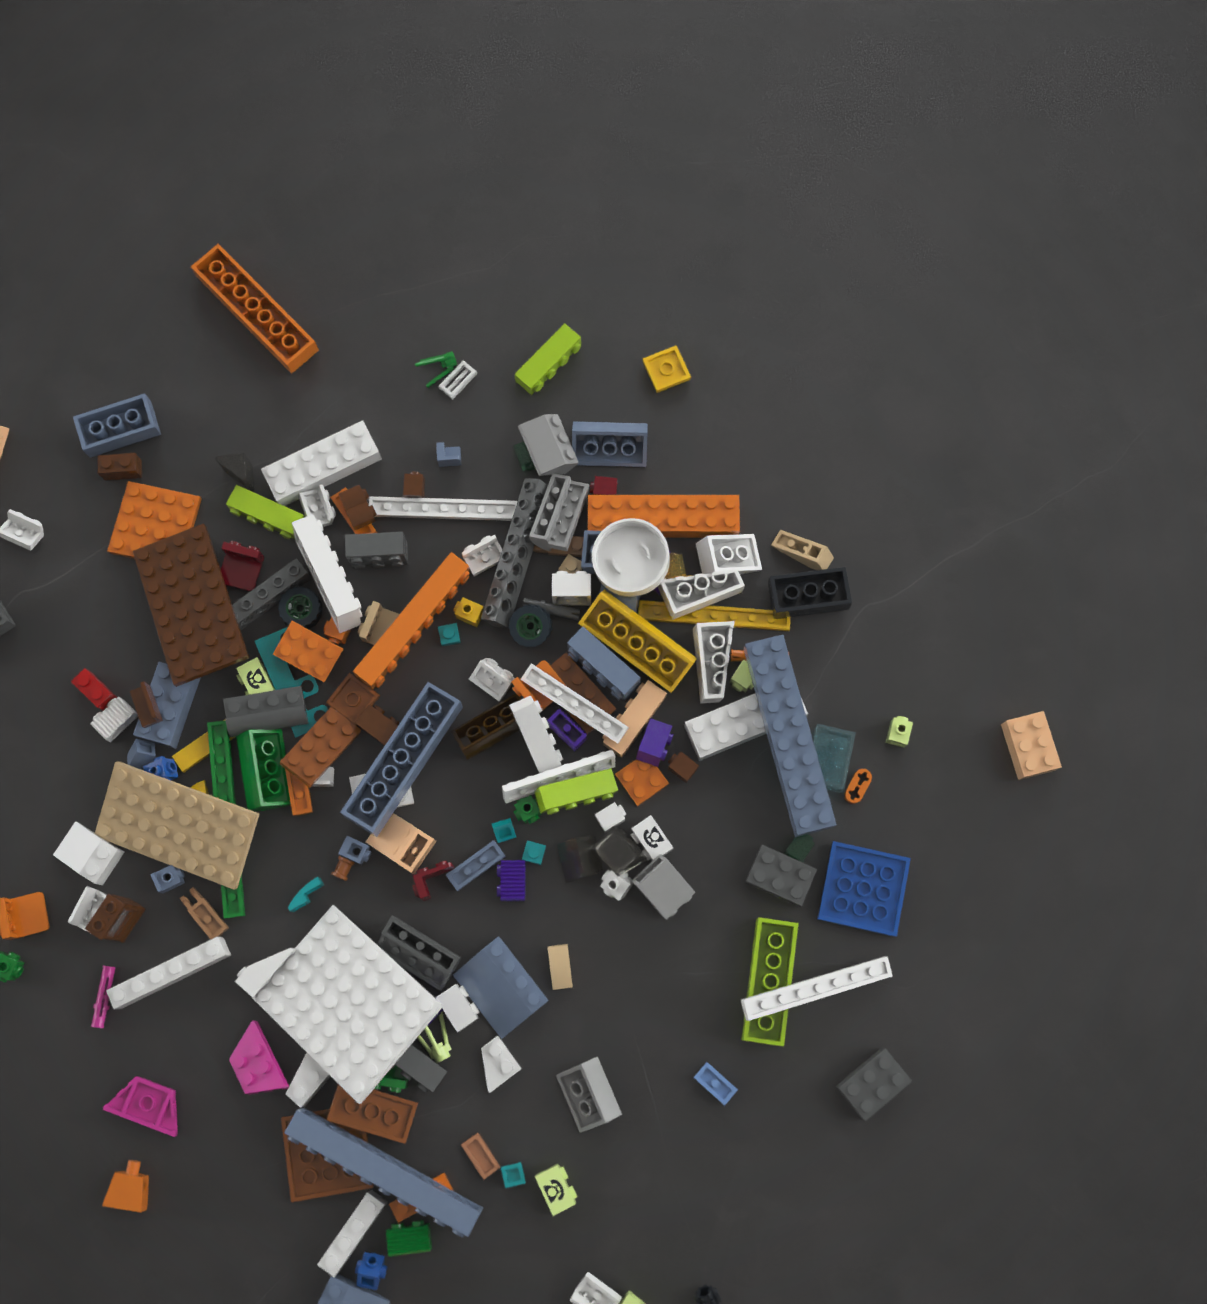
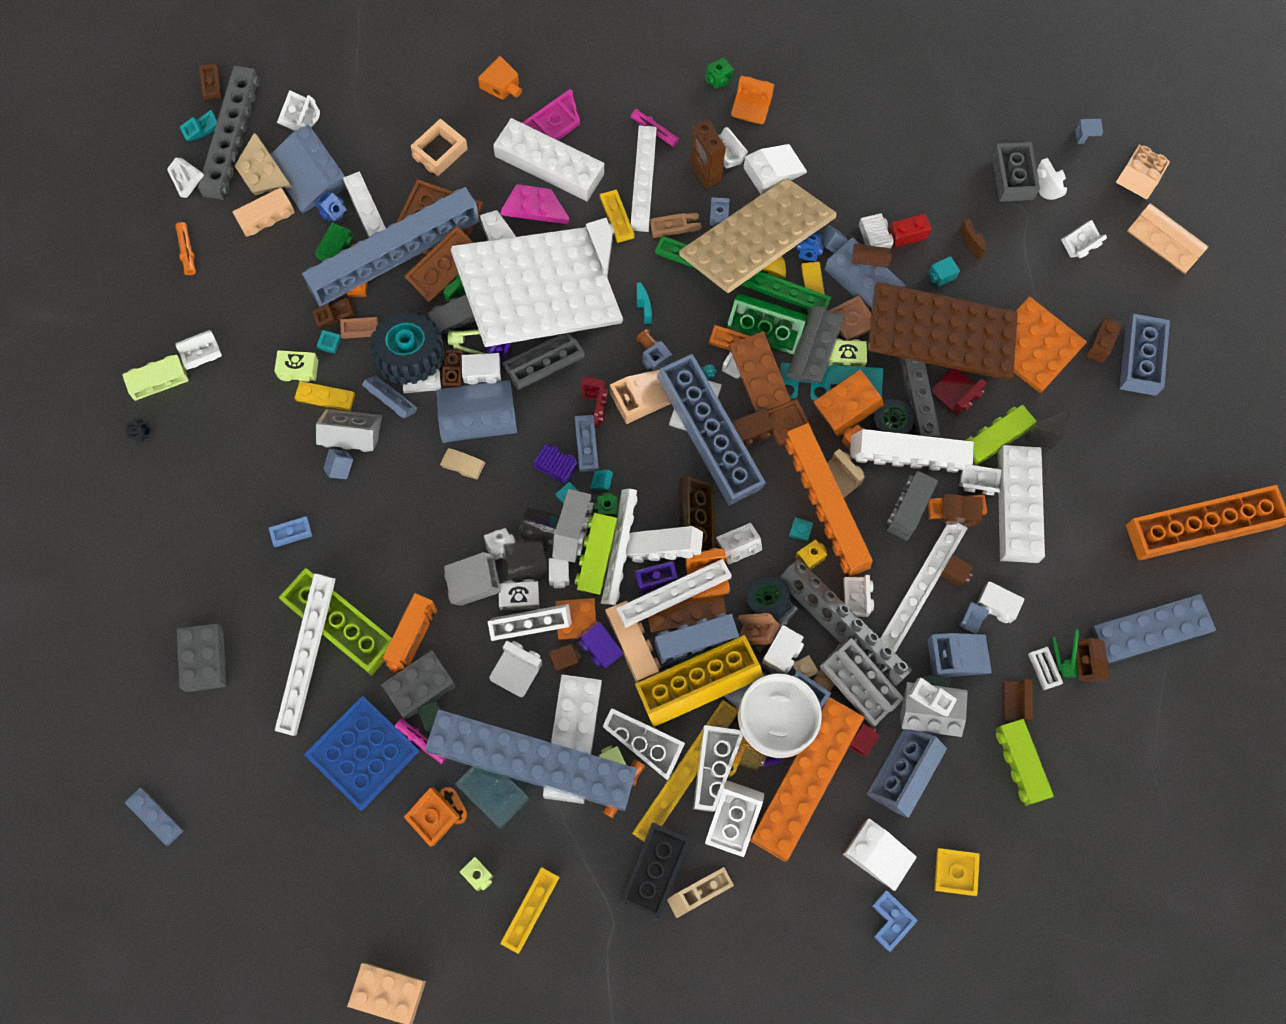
camera: 115 degrees right, 5 degrees down
(75, 623) = (974, 242): none -> reddish brown slope
(122, 637) = (943, 272): none -> teal brick
(197, 1081) = (549, 159): none -> white brick
(211, 693) = (856, 318): none -> nougat plate
(222, 1200) = (448, 133): none -> light nougat window
(224, 976) = (617, 216): none -> yellow plate
(343, 795) = (709, 371): none -> teal plate
(374, 313) = (1154, 628): none -> sand blue plate
(422, 440) = (1000, 602): none -> white brick
(432, 344) = (1092, 660): none -> reddish brown brick
(471, 1036) = (452, 368): none -> reddish brown slope
(480, 1088) = (407, 348): none -> black wheel
(480, 1191) = (331, 314): none -> reddish brown slope
(488, 450) = (958, 654): none -> sand blue slope
(498, 387) = (1018, 700): none -> reddish brown panel
(534, 1077) = (389, 396): none -> sand blue plate
(541, 447) = (931, 697): none -> white slope
(564, 618) = (758, 628): none -> nougat bracket
(565, 825) = (572, 526): none -> light grey brick
(568, 1142) = (324, 396): none -> yellow plate
(627, 1082) = (338, 464): none -> sand blue panel
(671, 812) = (530, 622): none -> white brick
(688, 433) = (880, 854): none -> white slope
(716, 802) = (516, 669): none -> white bracket
(732, 393) = (898, 921): none -> medium blue plate
(744, 909) = (409, 633): none -> orange door
(823, 852) = (415, 736): none -> dark pink pin
(878, 795) = (432, 816): none -> orange plate
(899, 674) = (529, 910): none -> yellow plate
(1023, 1032) = (154, 816): none -> sand blue plate

